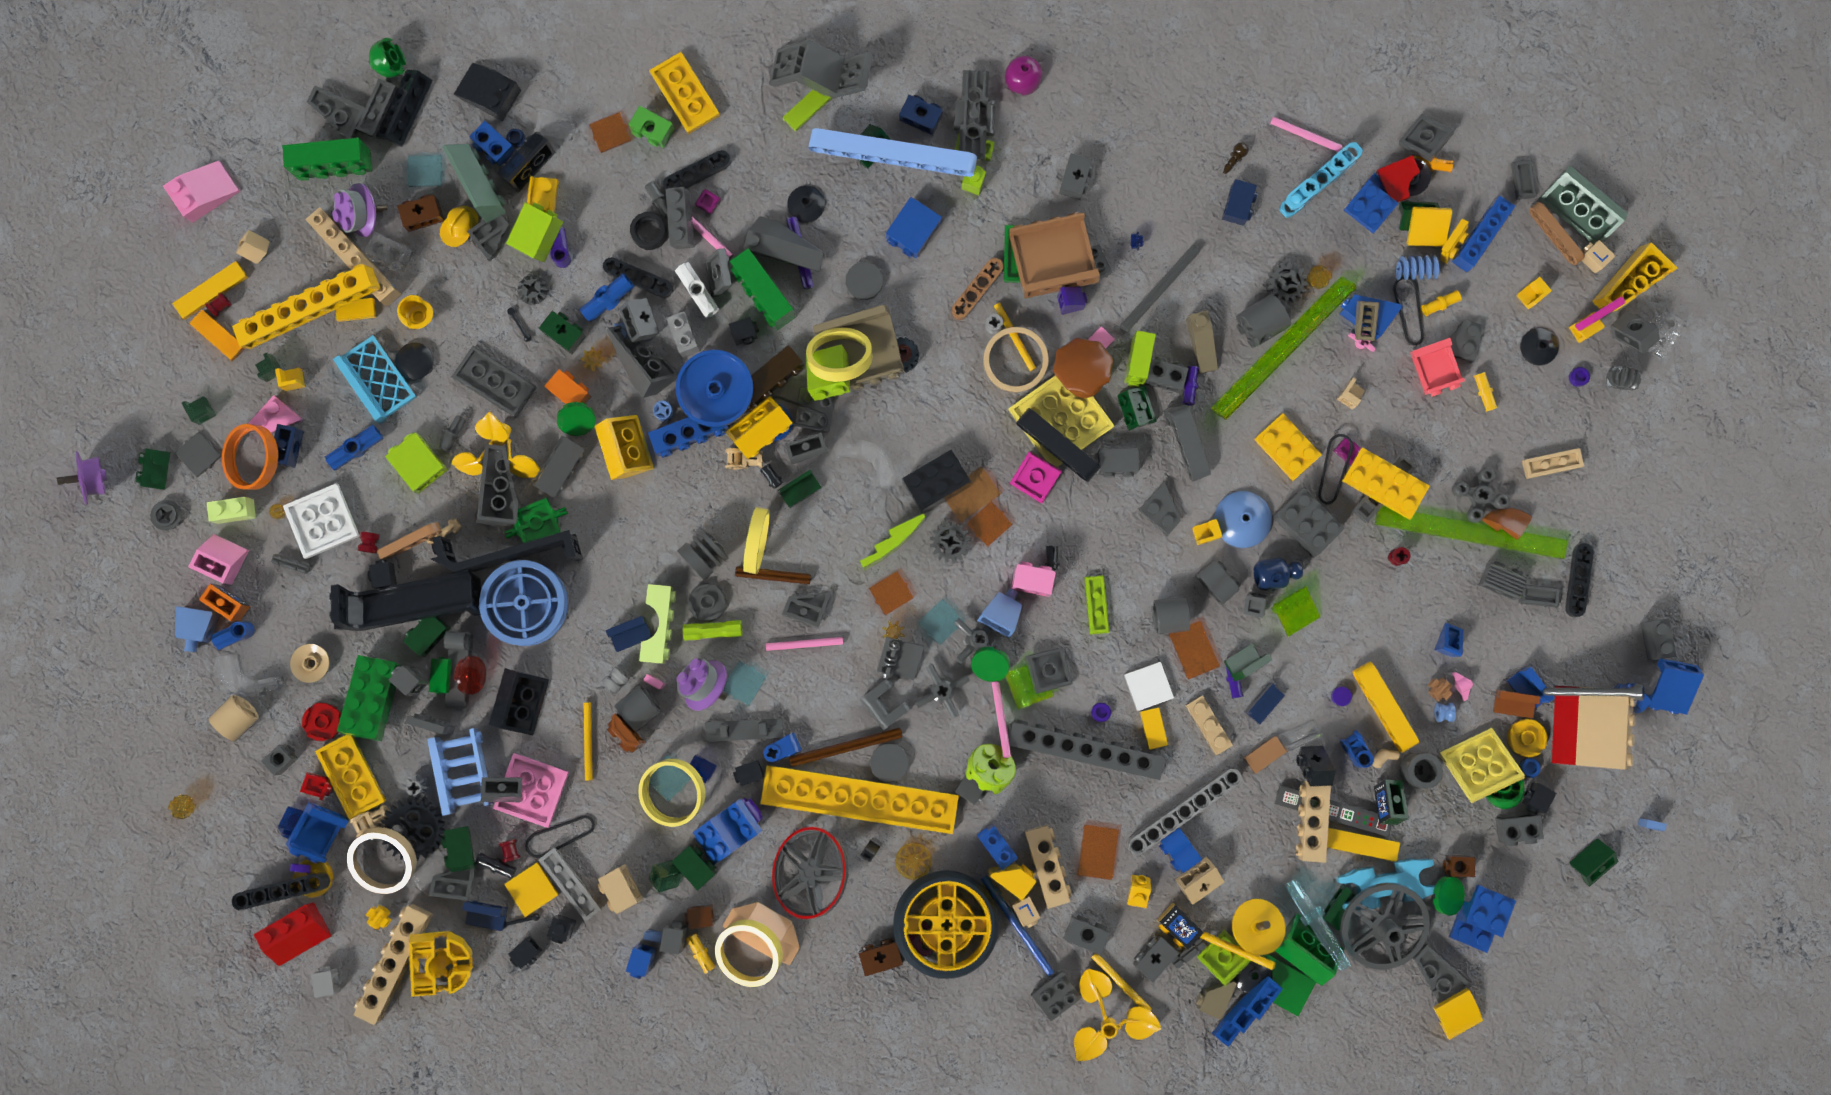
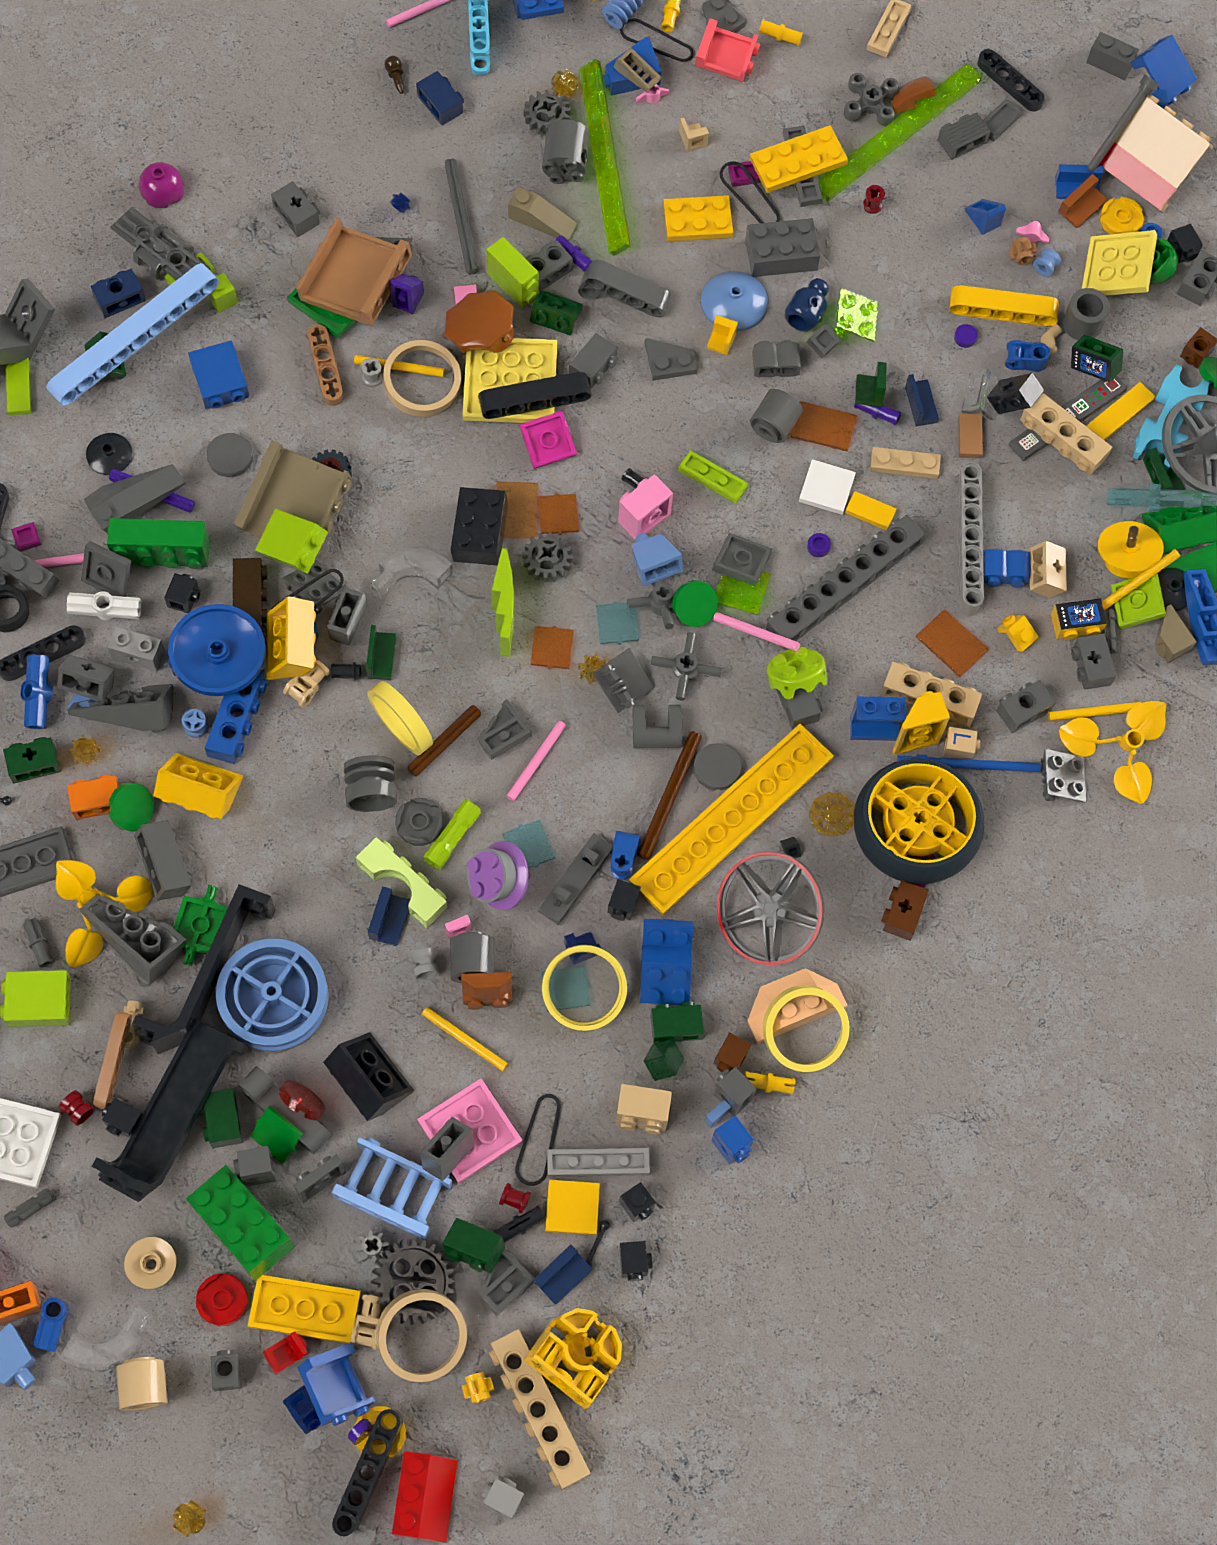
camera: 55 degrees left, 15 degrees down
(840, 374) = (297, 528): light yellow piece -> none

